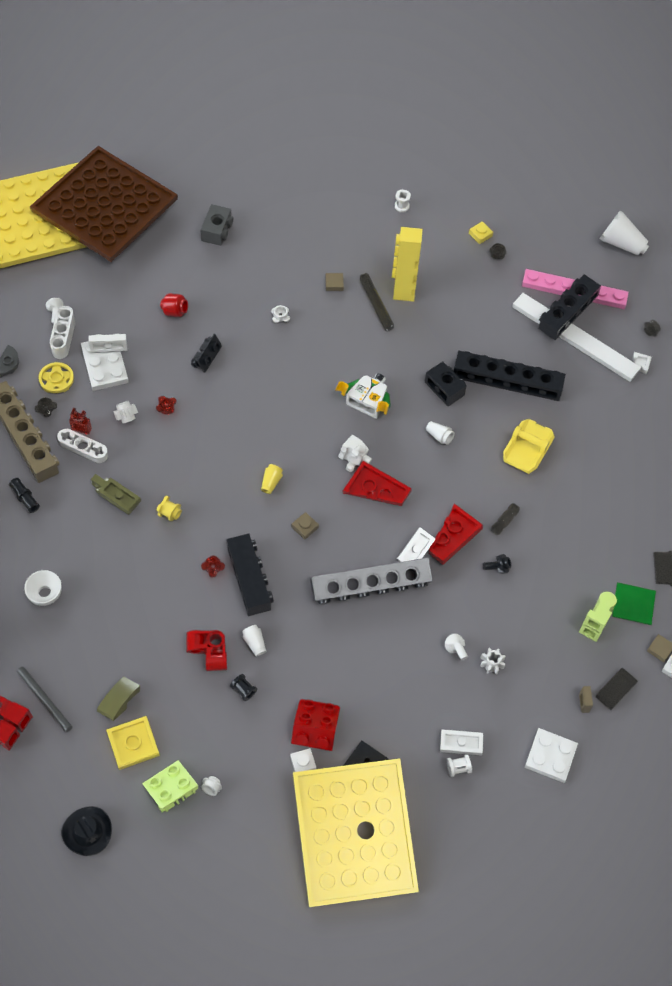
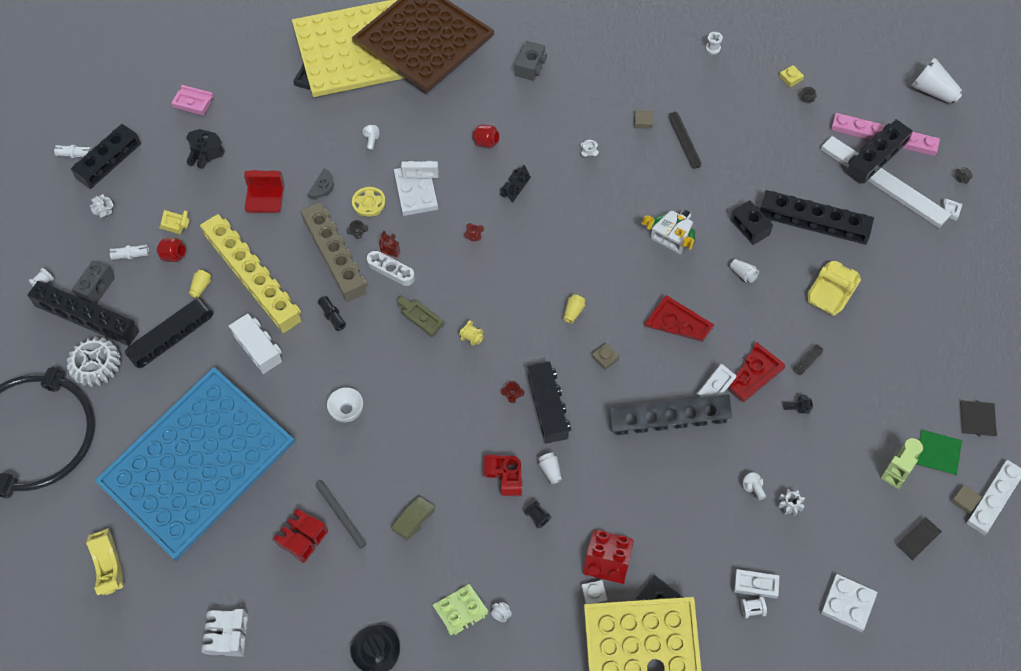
camera: 10 degrees right, 0 degrees up
(62, 332) = (376, 158): white beam -> none
(125, 412) = (434, 237): white gear -> none
(133, 742) = (425, 563): light yellow tile -> none
(354, 452) = (658, 286): white piece -> none
(406, 263) = (717, 102): light yellow wedge -> none
(586, 699) = (887, 547): dark tan tile -> none

